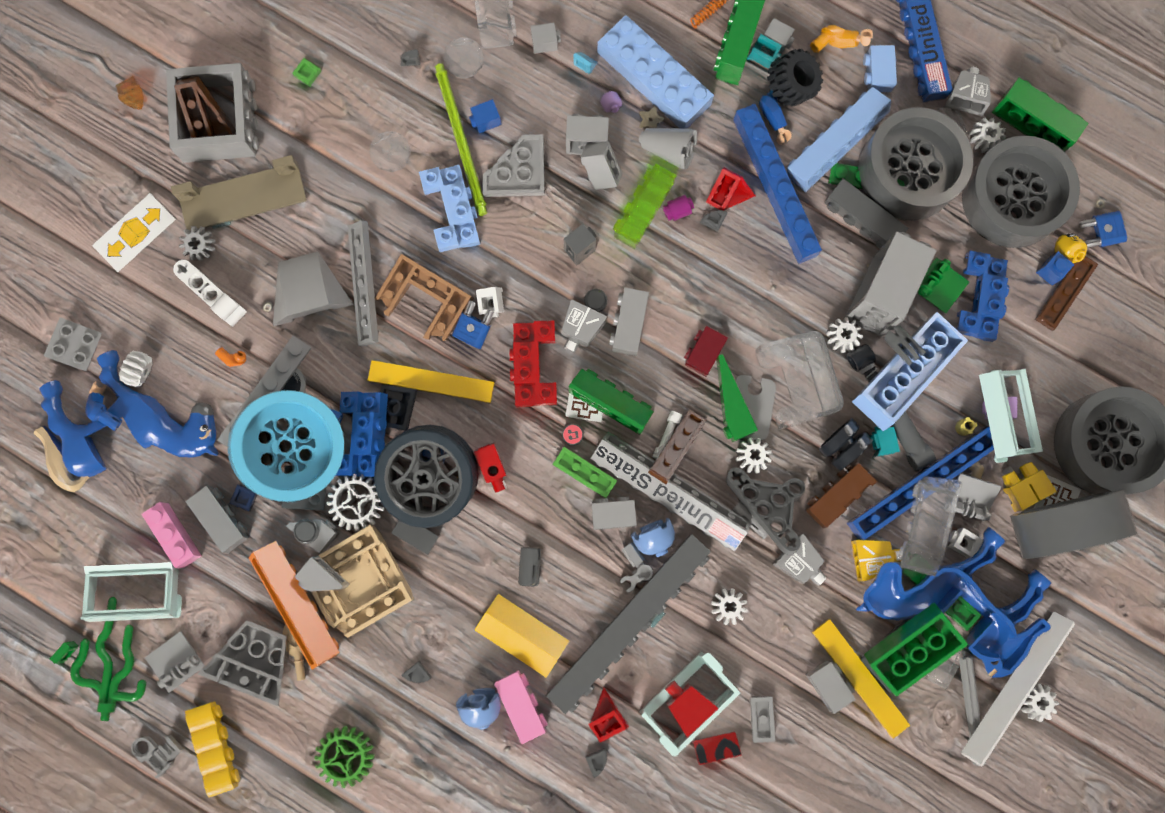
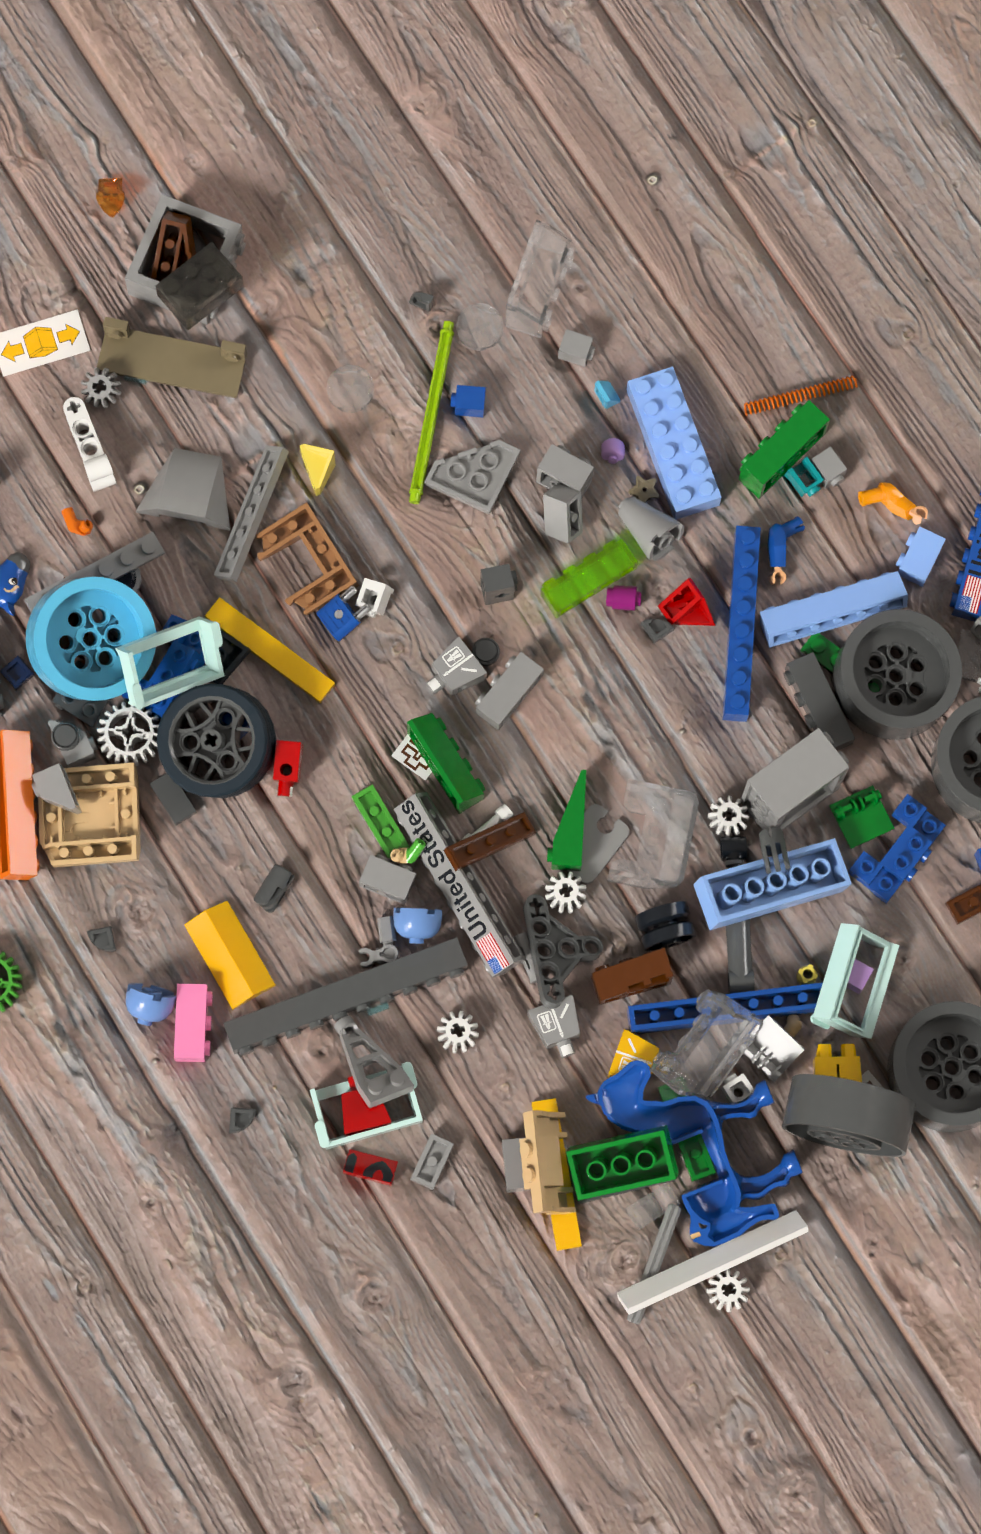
camera: 25 degrees right, 5 degrees down
(230, 124) = (199, 286): none -> clear smoke brick
(306, 72) = (305, 261): bright green tile -> none
(382, 399) = (210, 640): none -> light aqua piece
(395, 220) = (319, 465): none -> light yellow slope
(456, 199) = (389, 490): light blue bracket -> none
(526, 364) = (374, 687): red bracket -> none
(572, 434) = (388, 777): coral tile -> none
(607, 718) = (273, 1081): red slope -> none
(620, 488) = (408, 854): none -> arm
(699, 685) = (378, 1089): none -> light grey plate
(705, 351) = (569, 761): dark red brick -> none
(807, 74) = (802, 526): black tyre -> none
(854, 681) = (543, 1162): none -> tan bracket
(884, 442) = (710, 947): teal window -> none

